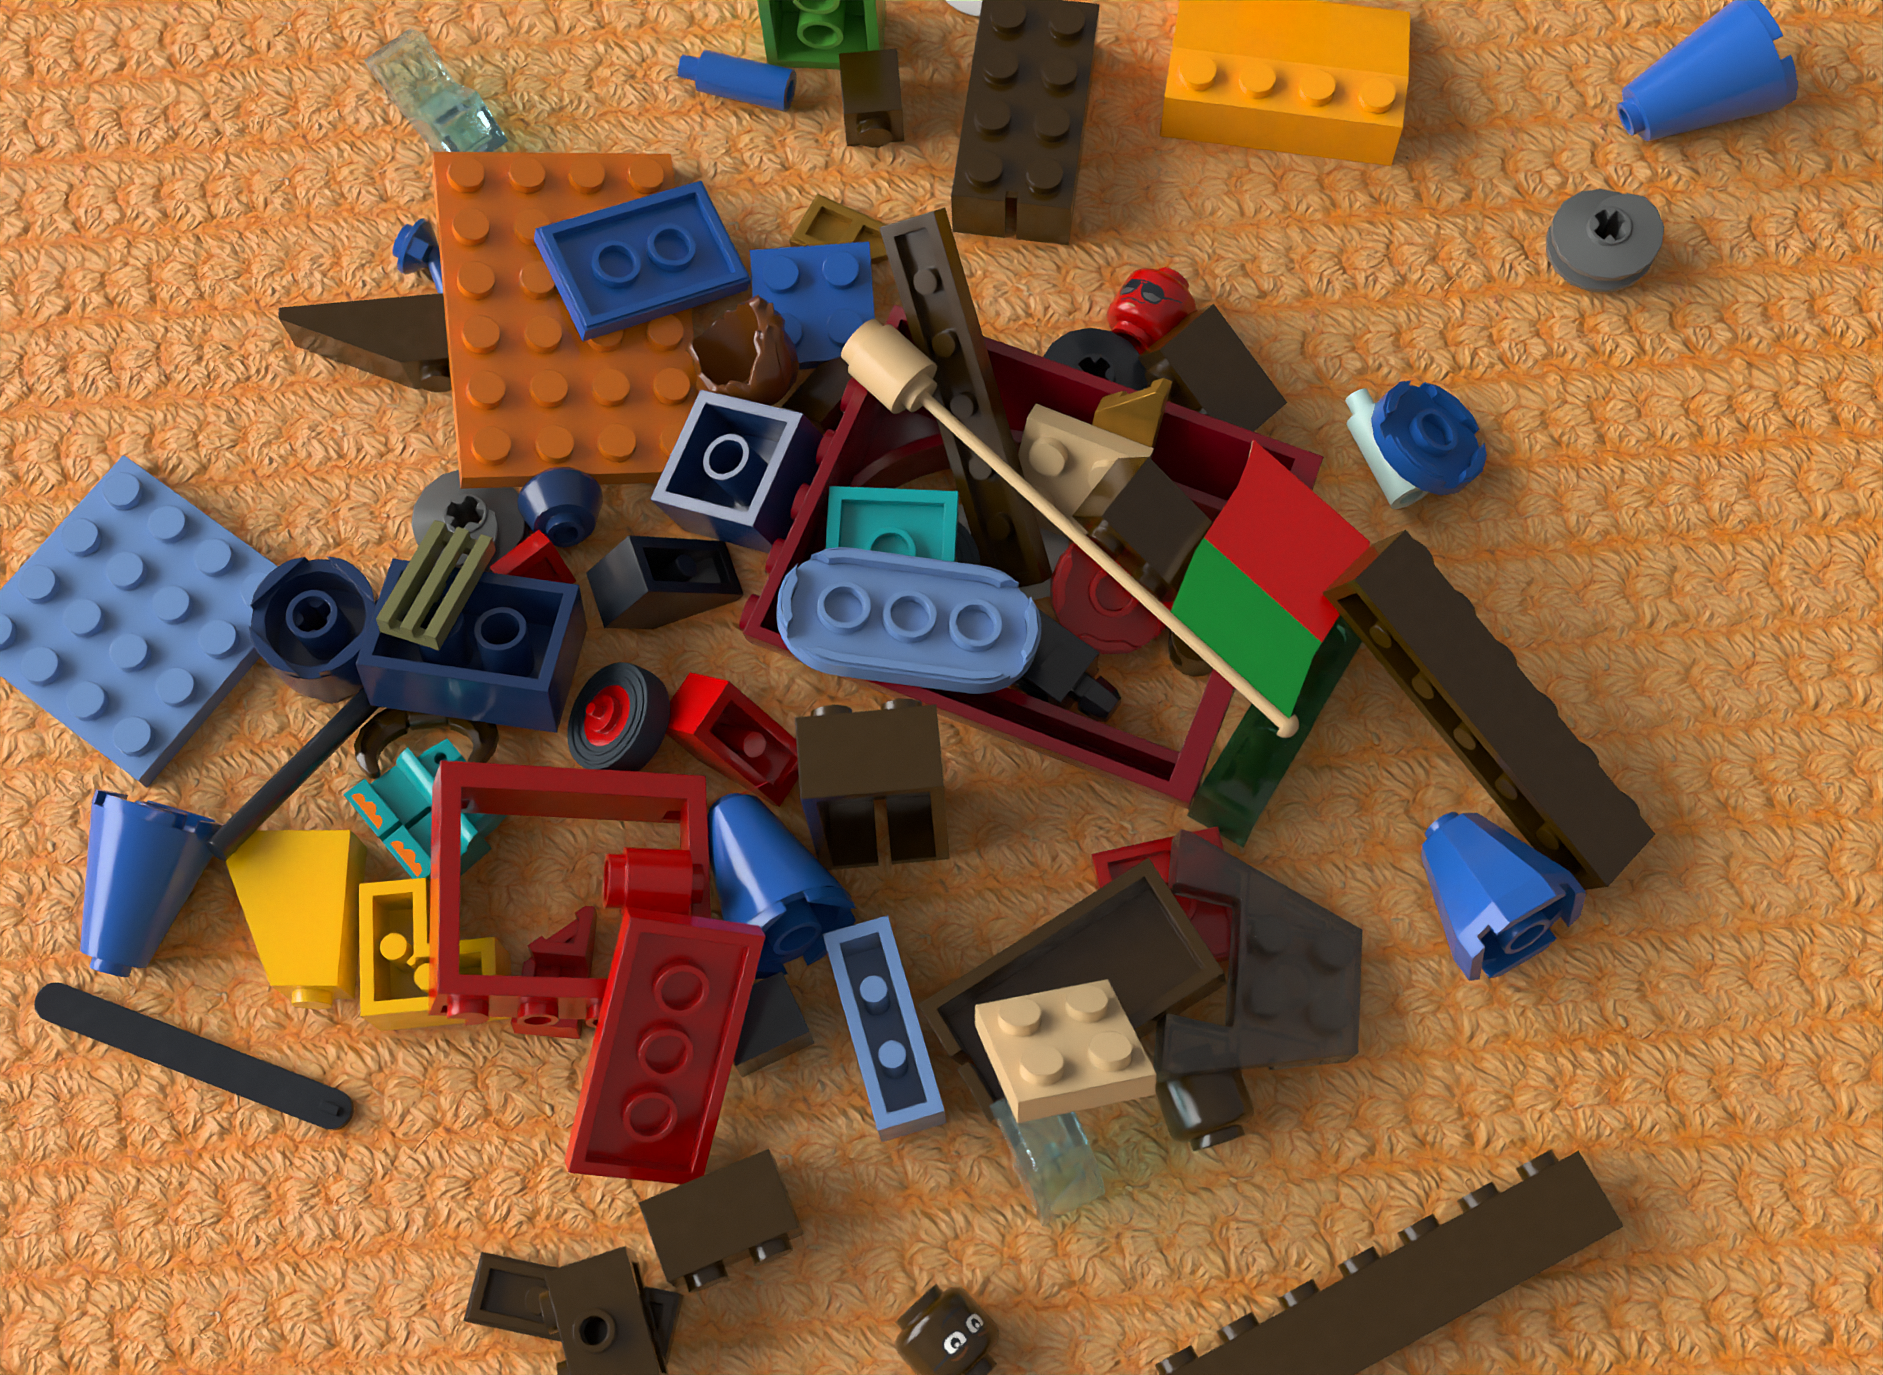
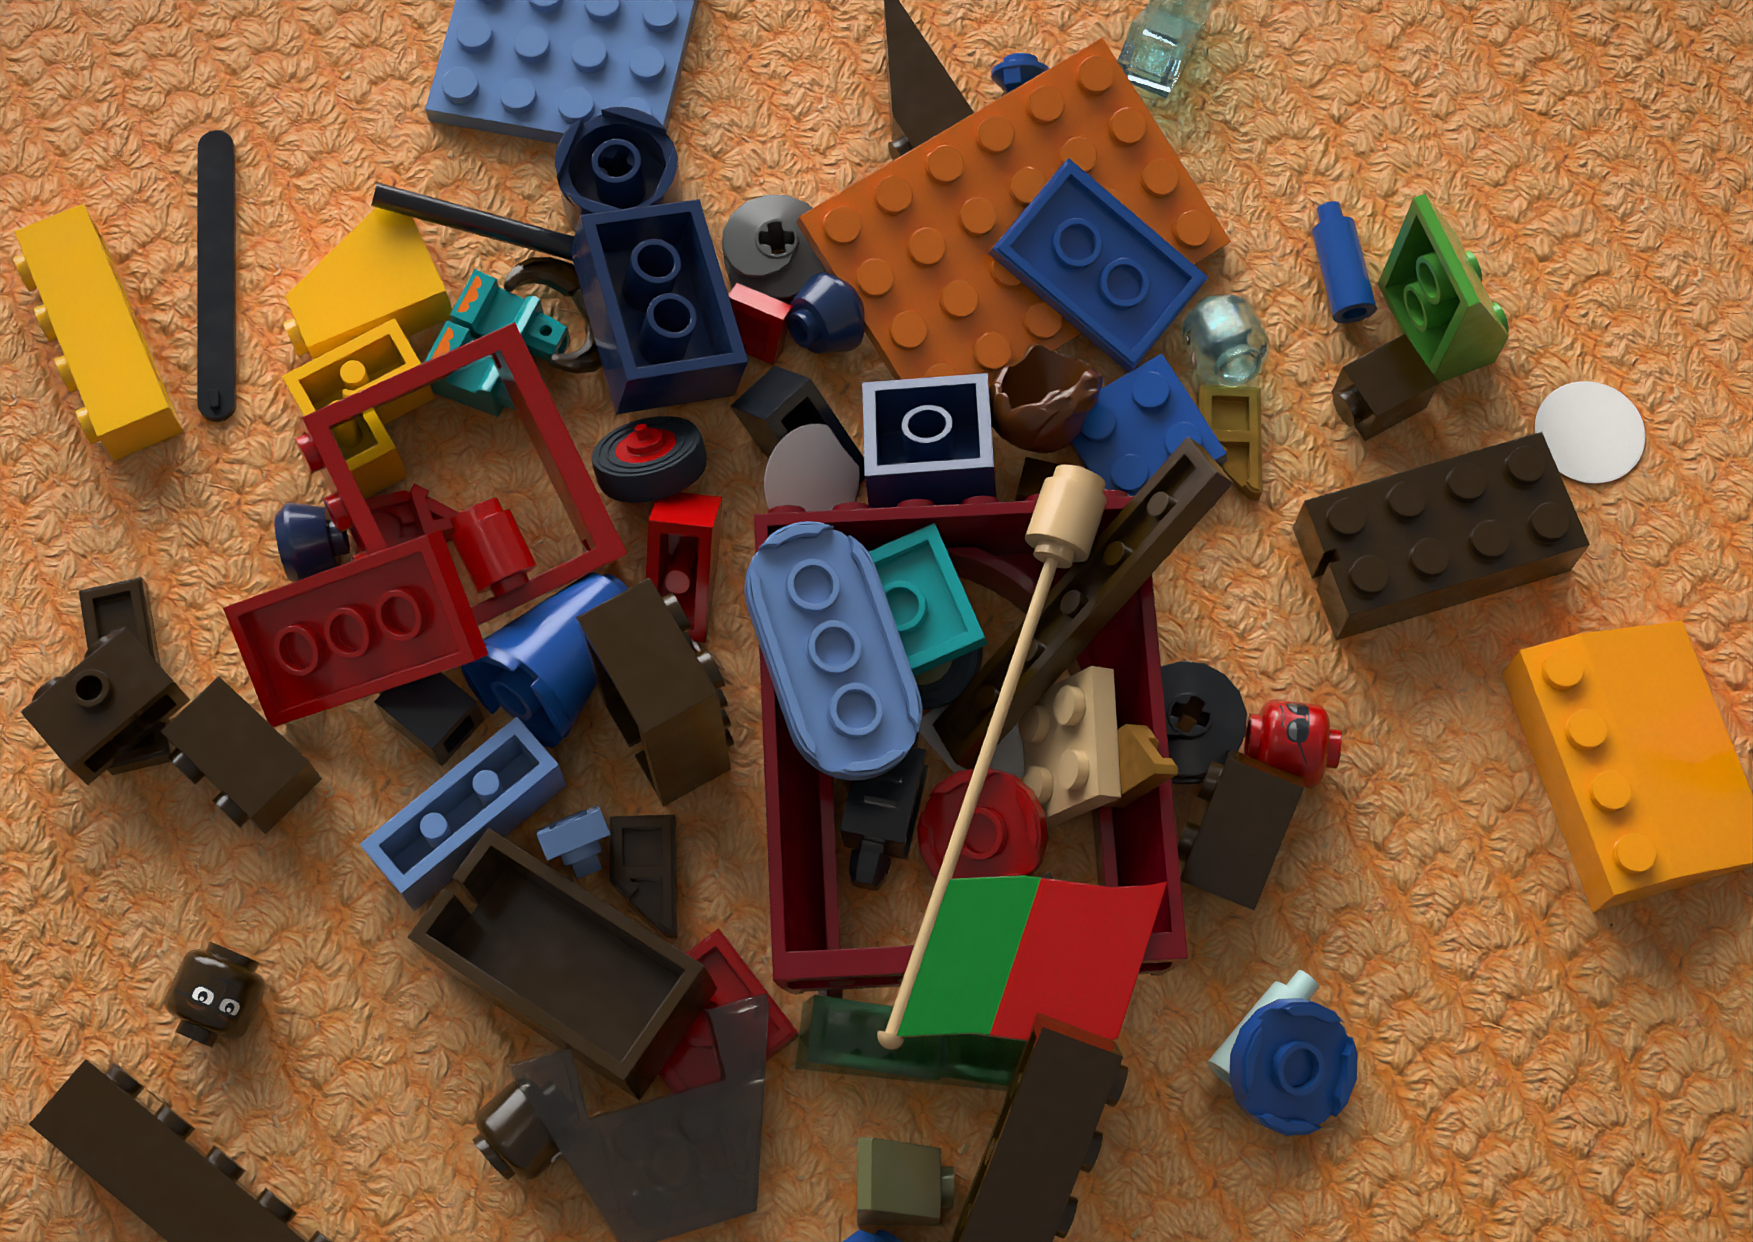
camera: 60 degrees right, 0 degrees up
(138, 877) = (340, 148): blue cone -> none
(194, 1193) = (97, 333): none -> yellow brick
(417, 571) = (684, 234): olive tile -> none
(534, 1069) = (308, 540): none -> dark blue cone
(710, 588) = (810, 471): none -> white sticker
(762, 197) = (1225, 340): none -> clear light blue head
(955, 934) = (576, 840): none -> medium blue plate
(1002, 895) = (646, 866): none -> dark brown tile
(1051, 1161) = (401, 1000): clear light blue brick -> none
(1064, 1050) = (479, 963): tan plate -> none
(1144, 524) = (1033, 819): dark brown brick -> none
(1396, 797) = (901, 1183): none -> olive slope
(1604, 239) = (1641, 1145): dark grey piece -> none

